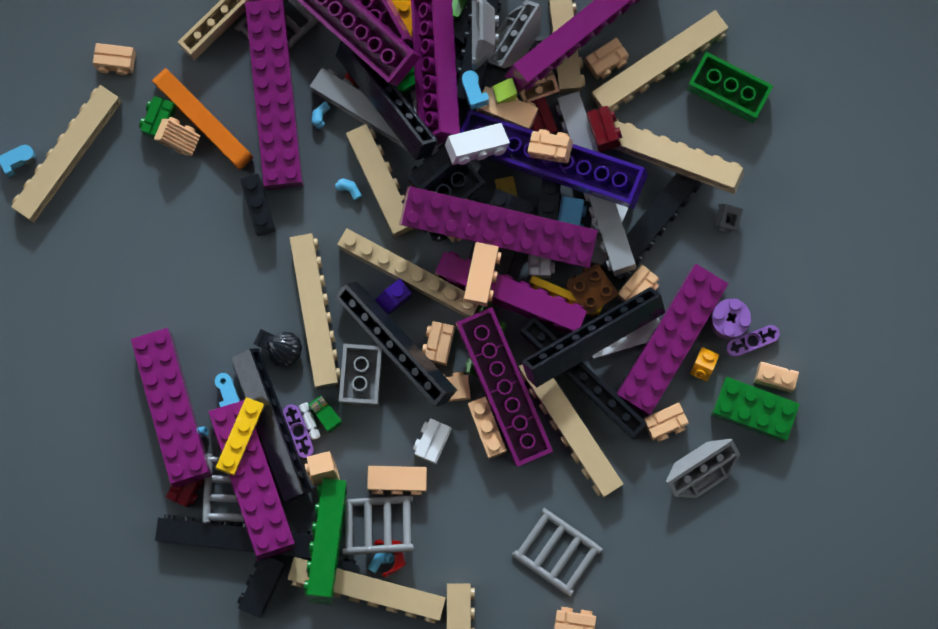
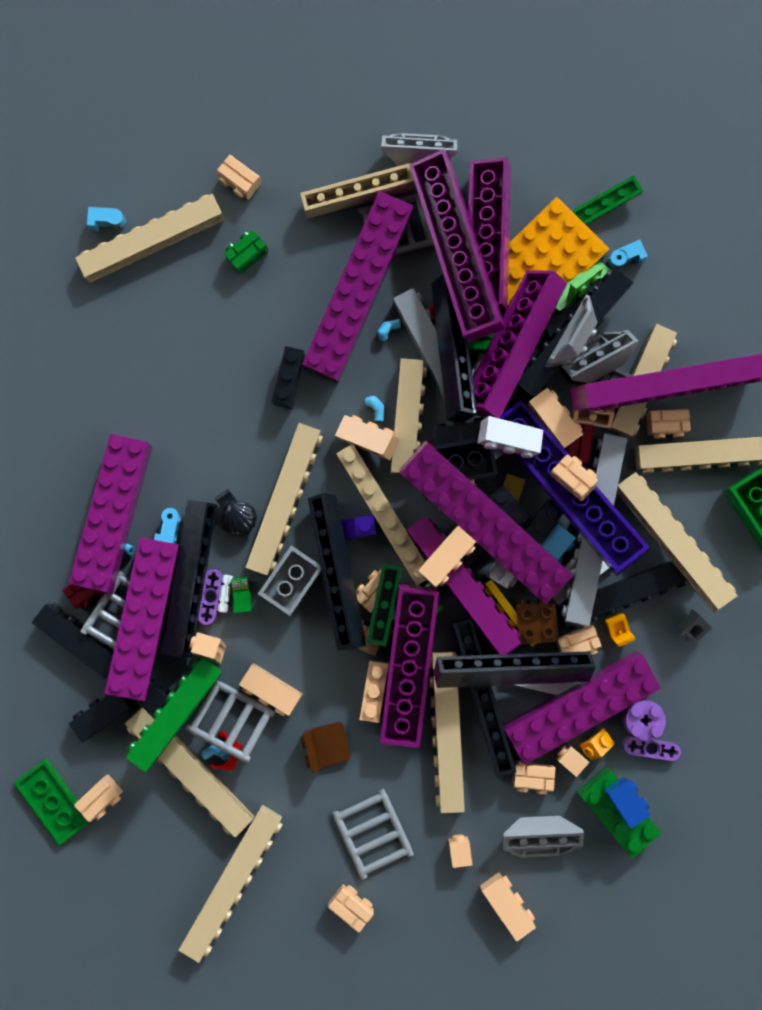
camera: 25 degrees right, 5 degrees up
(177, 137) = (252, 277): light nougat brick -> none
(202, 119) = (284, 274): orange beam -> none
(240, 436) = (152, 577): yellow plate -> none
(349, 565) = (185, 740): black plate -> none
(355, 215) = (367, 436): none -> light nougat brick
(433, 440) = (320, 674): white brick -> none
(452, 346) = (384, 604): none -> dark green brick
(473, 93) = (534, 386): medium azure leg -> none
(473, 499) = (325, 746): none -> reddish brown bracket
(505, 91) = (563, 403): lime slope -> none
(603, 128) = (631, 485): dark red brick -> none
(640, 521) = (460, 851): none -> light nougat brick
(666, 256) = (619, 629): none -> light orange bracket
(689, 389) = (571, 759): none -> light nougat brick
(708, 543) = (508, 906): none -> light nougat brick
(753, 392) = (627, 802): none -> blue brick
(776, 377) = (654, 794): light nougat brick -> none

